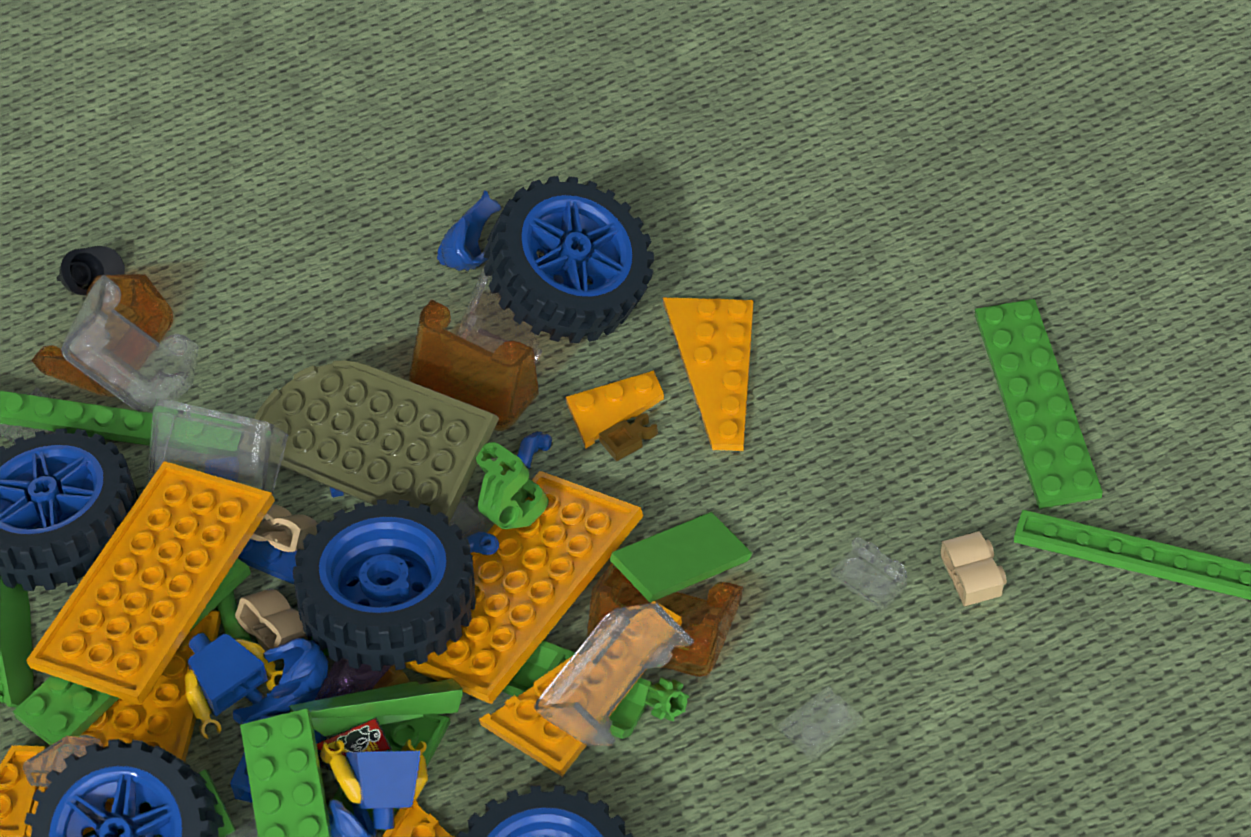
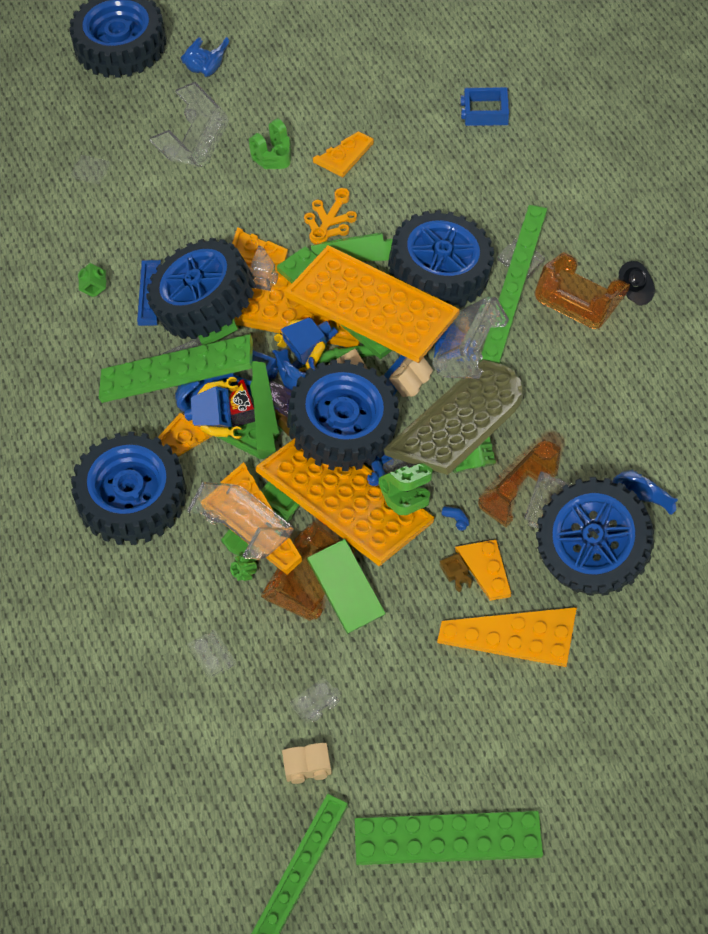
camera: 95 degrees right, 5 degrees up
(126, 357) = (554, 294): clear windscreen -> none

